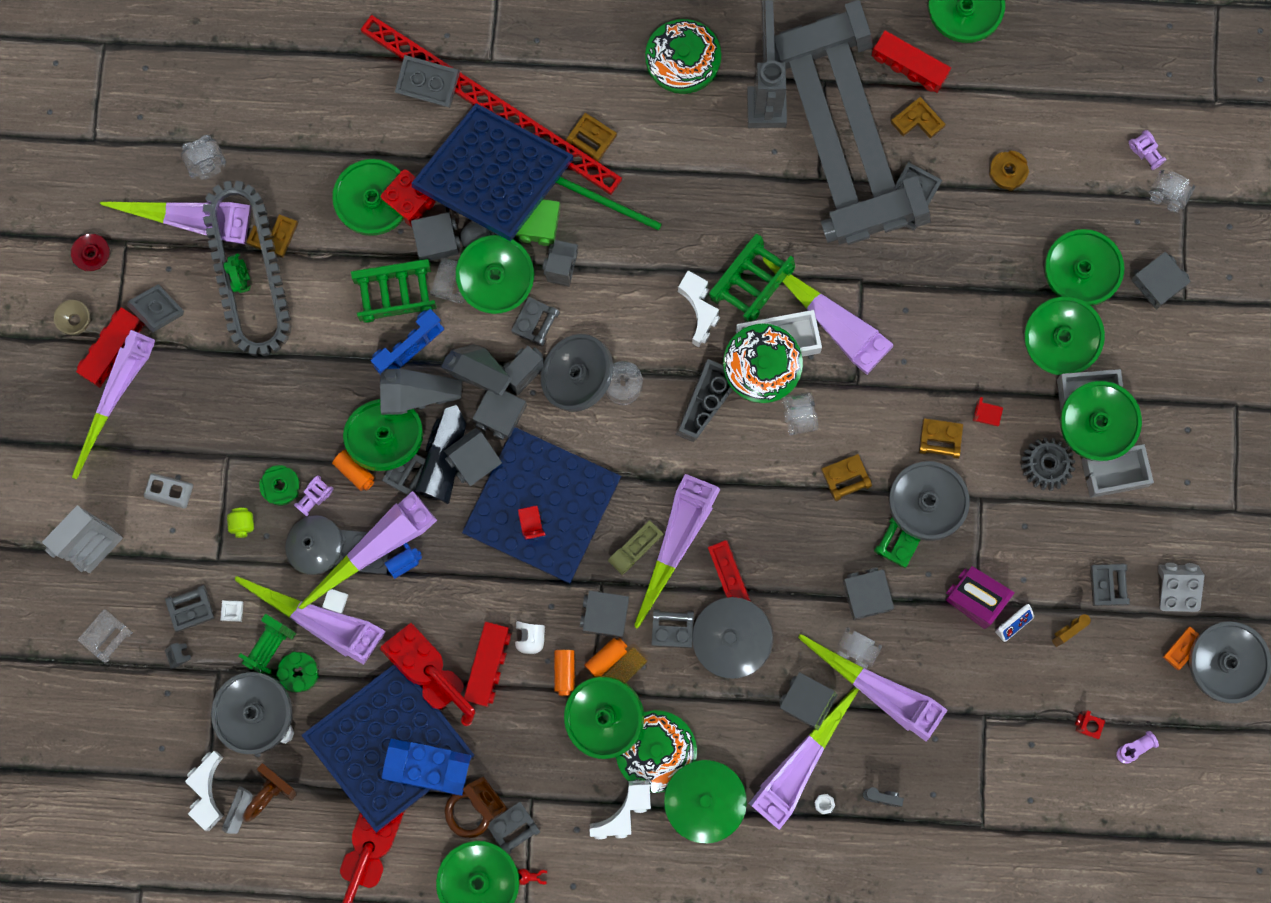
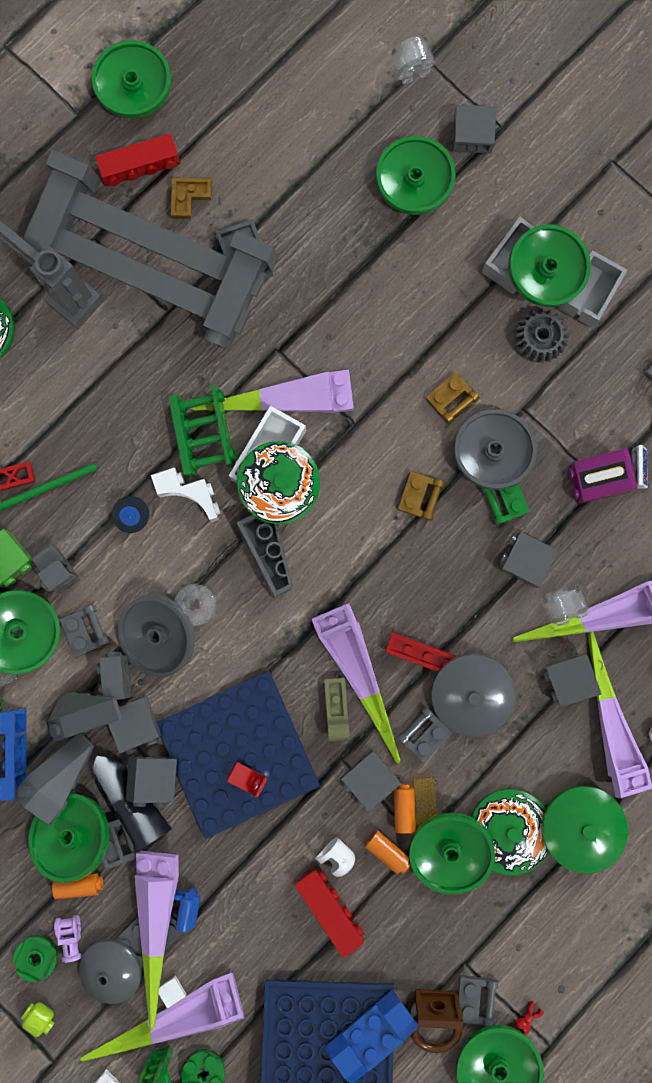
camera: 55 degrees left, 5 degrees up
(412, 655) = (268, 966): red plate -> none
(620, 823) = (544, 912): white arch -> none
(647, 281) = (130, 514): none -> black wheel
(800, 413) = (342, 487): clear brick -> none
(987, 413) = (463, 346): red bracket -> none
(1007, 159) = (286, 174): pearl gold plate -> none
(1064, 335) = (455, 236): green dish -> none
(1146, 148) = (363, 50): lavender connector -> none

